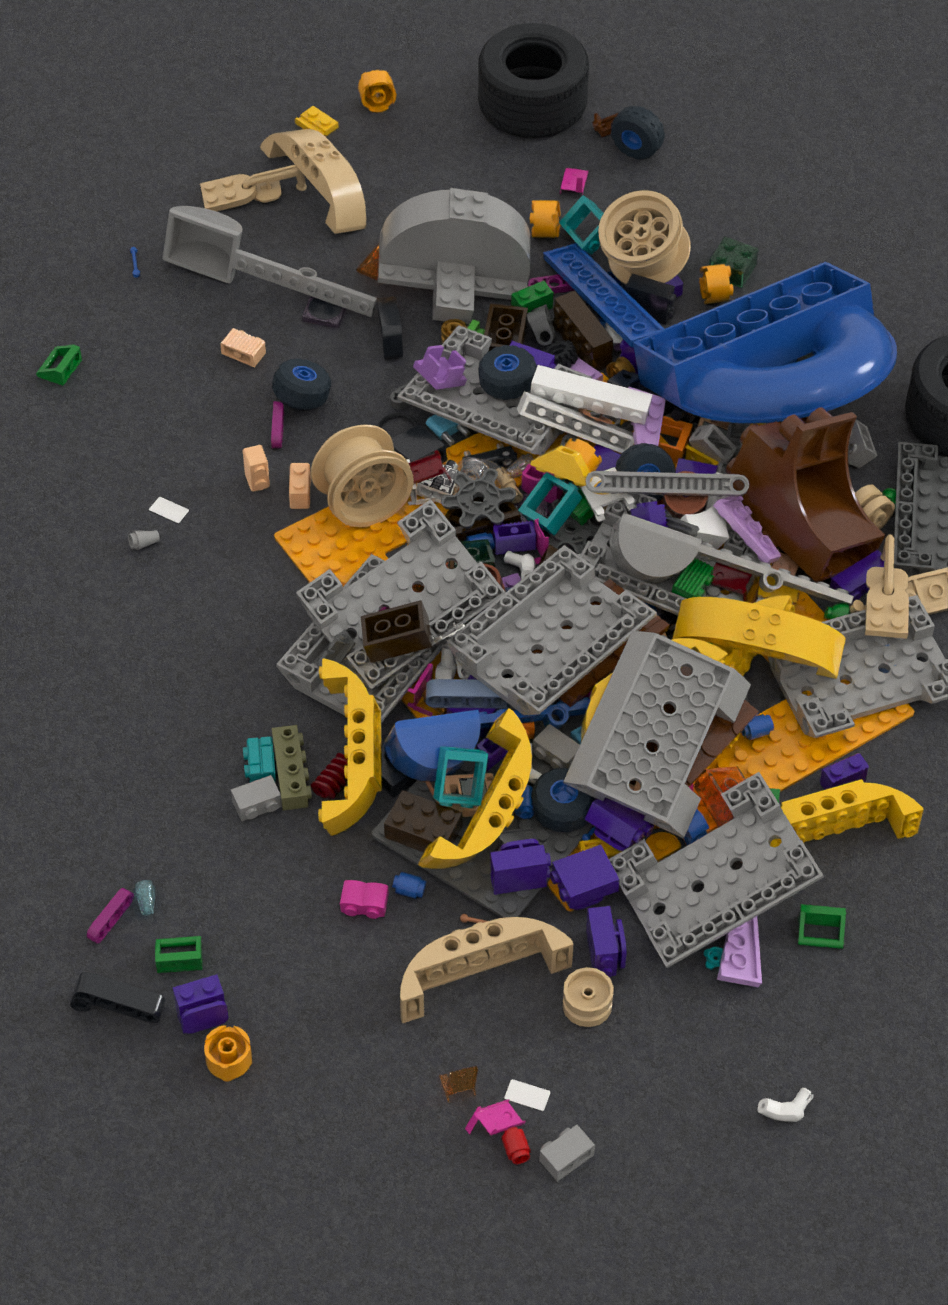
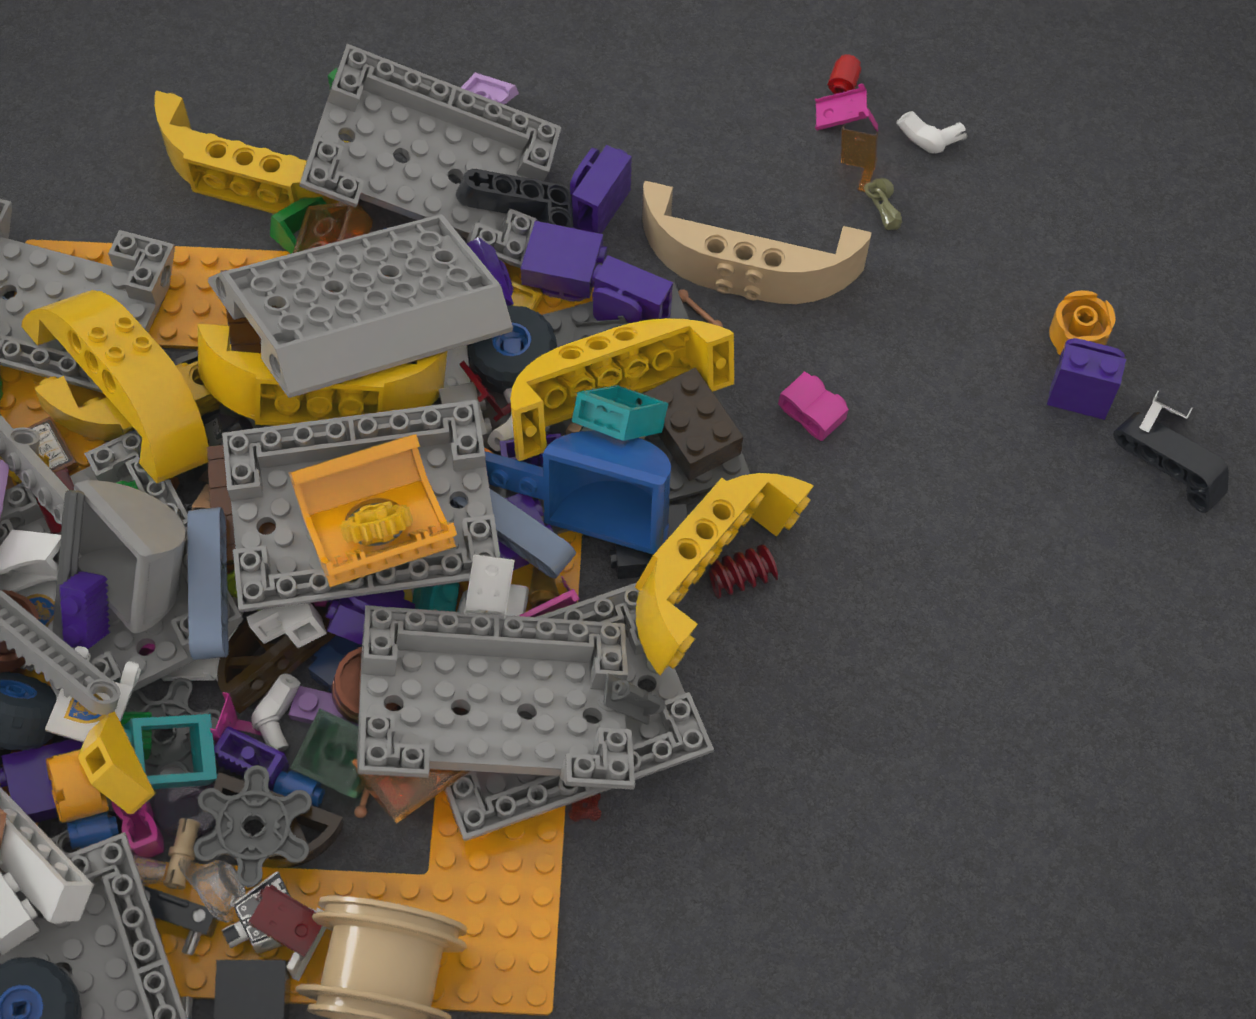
camera: 145 degrees left, 10 degrees up
(110, 915) = (1121, 569): magenta beam -> none
(136, 1027) = (1153, 413): none -> white piece
(145, 896) = (1064, 569): clear light blue cone -> none
(179, 960) = (1072, 464): green tile -> none
(256, 798) = (853, 607): light grey brick -> none
(260, 758) = (814, 654): teal brick -> none
(290, 767) = (783, 623): olive brick -> none
(396, 631) = (551, 637): dark brown brick -> none
(406, 1058) = (881, 190): none -> olive piece
(409, 885) = (751, 391): blue brick -> none
(425, 1136) = (927, 136): none -> white arm
(527, 1095) = (792, 124): white sticker -> none
(528, 590) = (377, 474): none -> light orange panel
(528, 610) = (376, 523): none -> yellow gear
(552, 759) = (477, 381): none -> dark red piece
(566, 1152) = (801, 42): light grey brick -> none
(587, 997) = (662, 152): tan wheel -> none
(607, 566) = (207, 583): none -> sand blue beam
(646, 892) = (501, 192): none -> black beam
(758, 727) = (210, 311): blue brick -> none
(844, 772) = (178, 211): dark purple brick -> none

